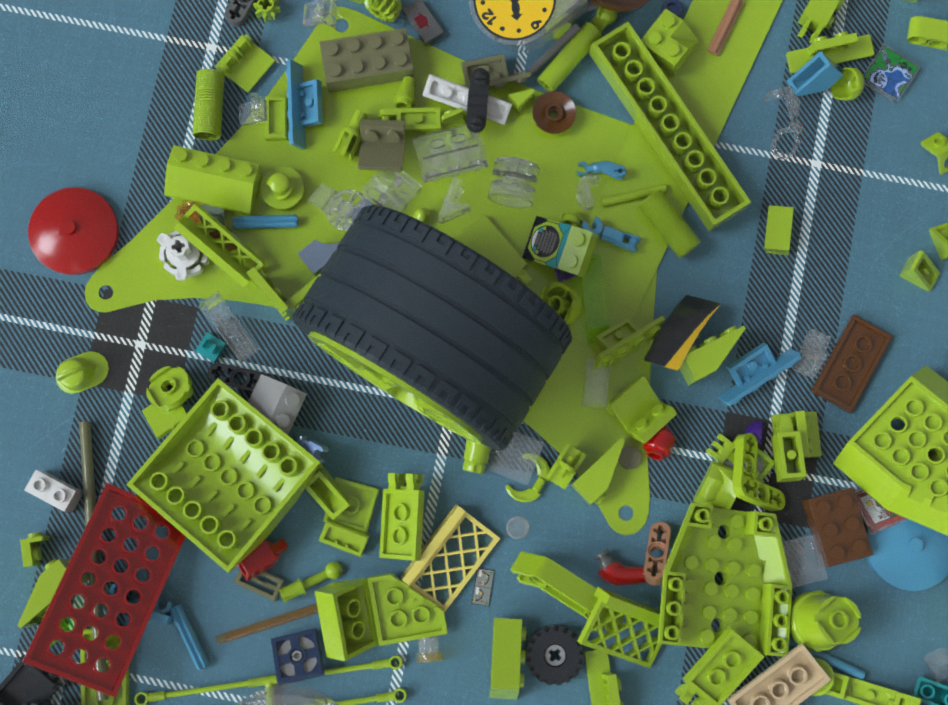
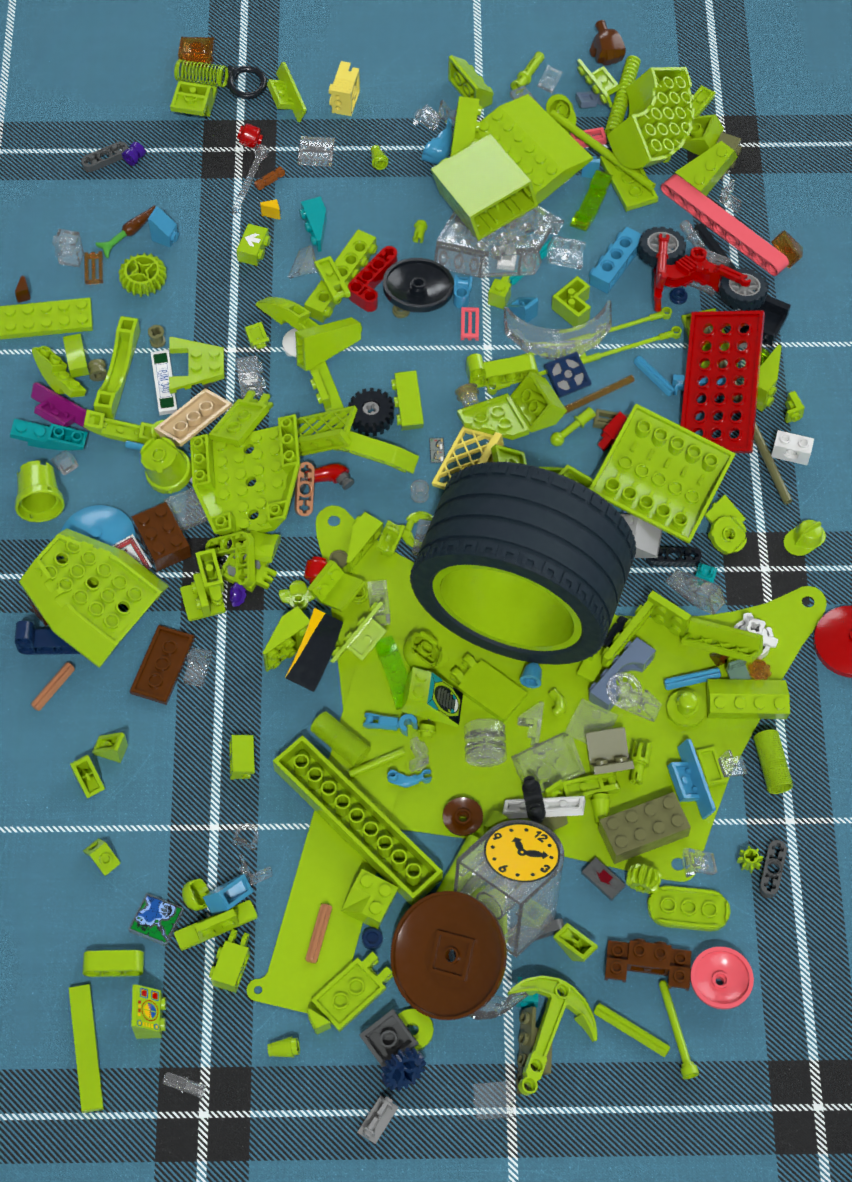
camera: 170 degrees right, 20 degrees down
(245, 63) = (754, 808): lime hinge -> none
(344, 537) = (554, 459): lime plate -> none
(362, 677) = (499, 370): none -> lime beam
(686, 422) = (296, 595): none -> lime plate
(754, 370) = (244, 639): dark azure bracket -> none

